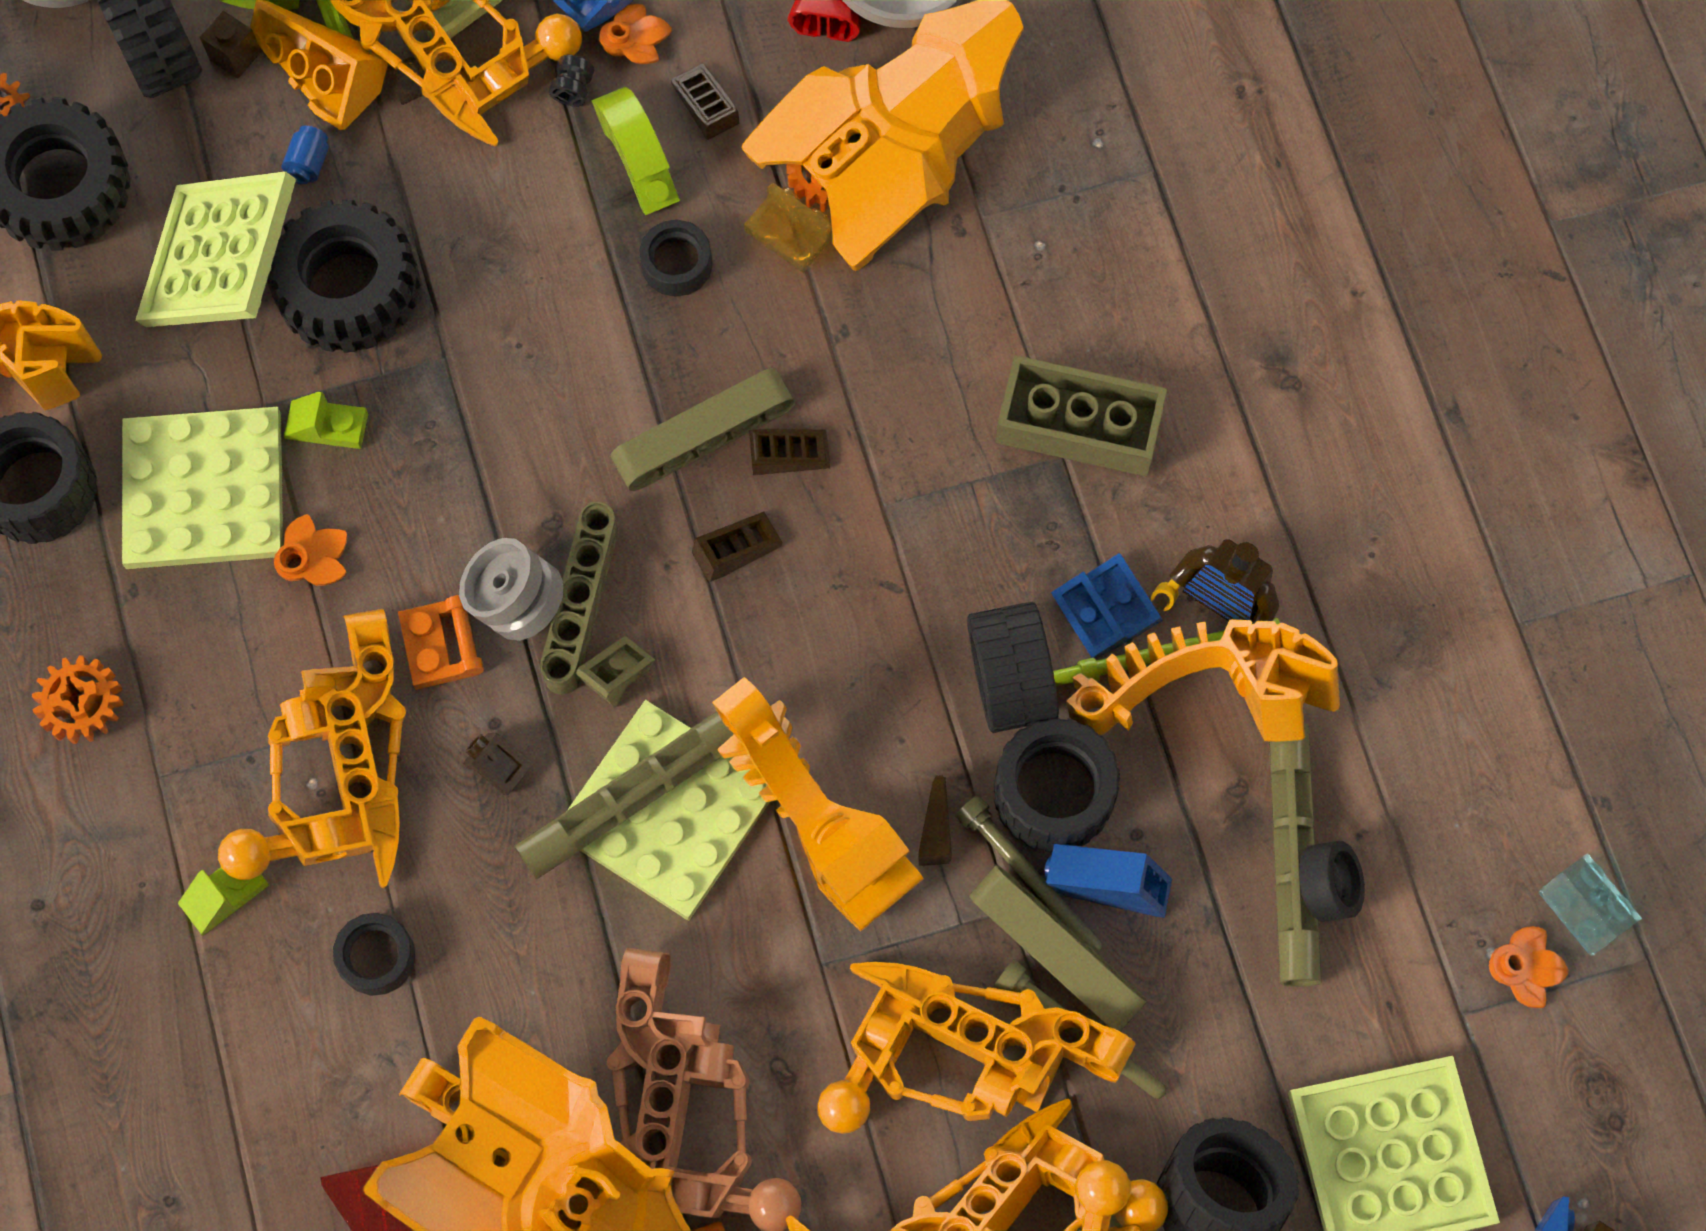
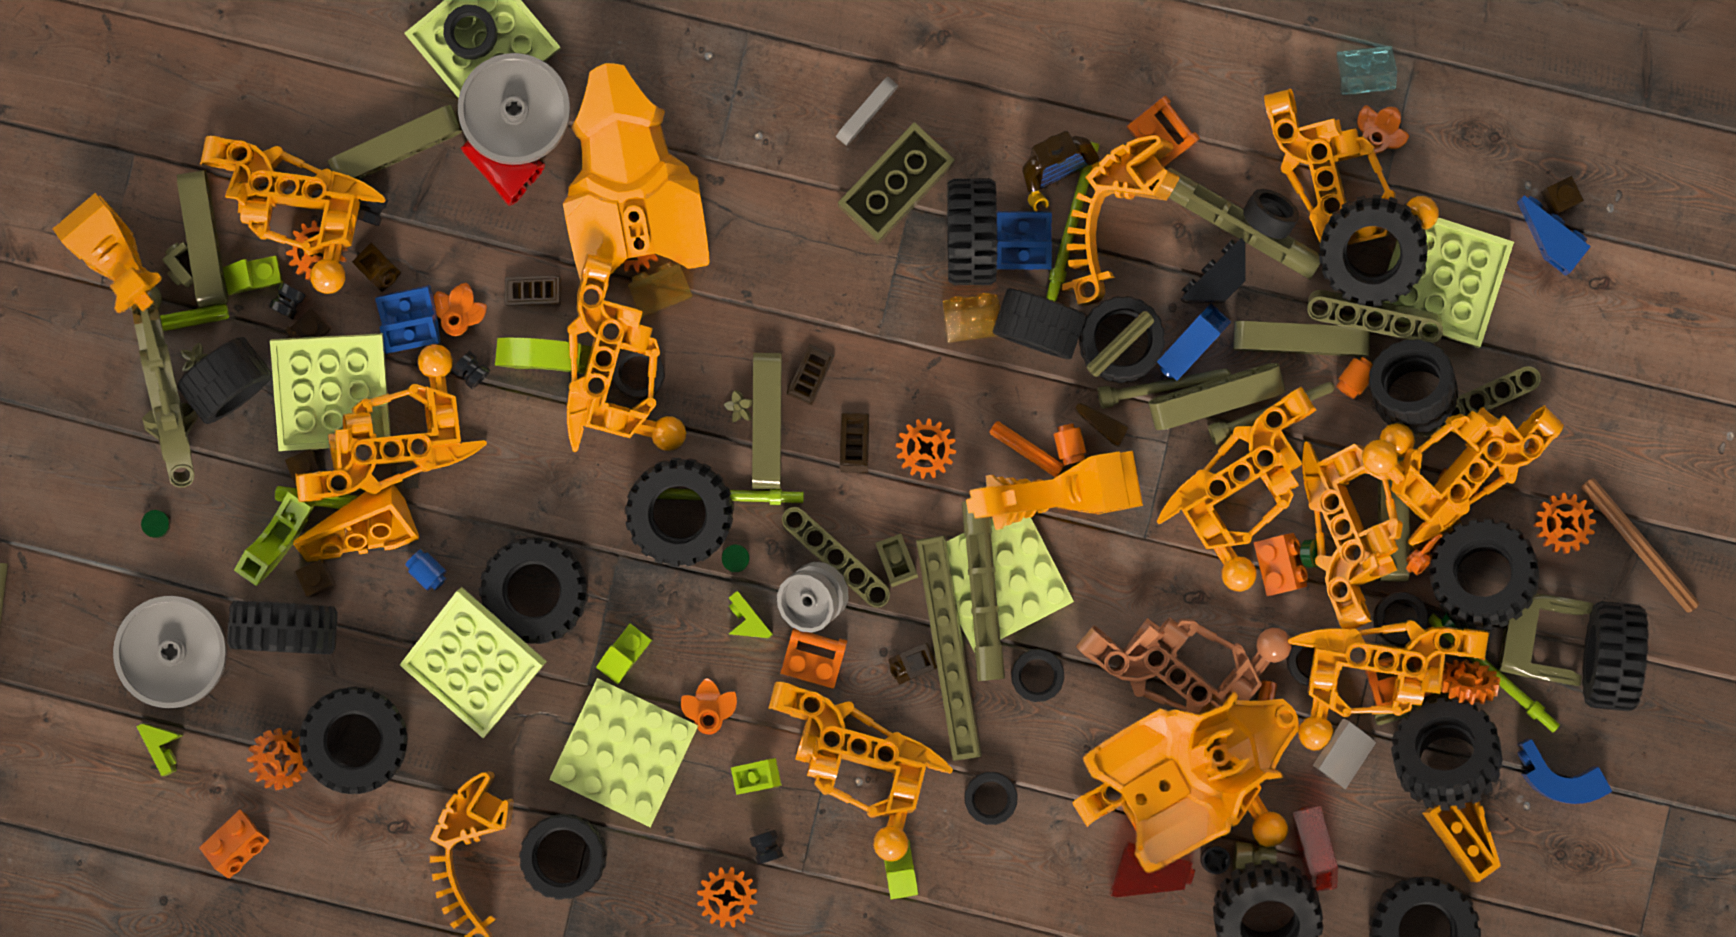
camera: 60 degrees left, 15 degrees up
(173, 705) = (765, 840): none -> black wheel
(253, 654) = (756, 776): none -> lime slope
(444, 543) = (752, 625): none -> lime slope
(503, 344) = (662, 546): none -> black tyre
(514, 486) = (735, 558): none -> dark green tile
(539, 794) = (949, 648): none -> olive tile
(551, 897) = (1058, 675): none -> black tyre
(599, 221) = (590, 408): none -> light orange piece
(614, 487) = (774, 496): none -> lime bar
(702, 388) = (738, 406): none -> olive plant
(790, 637) = (936, 440): none -> orange gear
(849, 750) = (1026, 449): none -> orange axle
(888, 796) = (1070, 444): none -> orange brick
(889, 1158) = (1281, 564): none -> orange bracket
(924, 1183) = (1308, 553): none -> dark green tile
(968, 588) = (970, 317): none -> clear yellow bracket
(1047, 774) = (1120, 343): none -> olive axle
(1075, 519) = (972, 231): none -> black tyre
(1146, 341) = (867, 111): none -> light grey beam
(1186, 1110) = (1355, 377): none -> orange brick
(1198, 1017) = (1300, 339): none -> olive beam
(1209, 867) = (1219, 277): none -> black slope
(1270, 1074) = (1385, 326): none -> olive beam
(1323, 997) = (1366, 286): none -> black tyre
(1331, 722) = (1149, 125): none -> orange plate
(1475, 921) = (1340, 147): none -> light orange piece

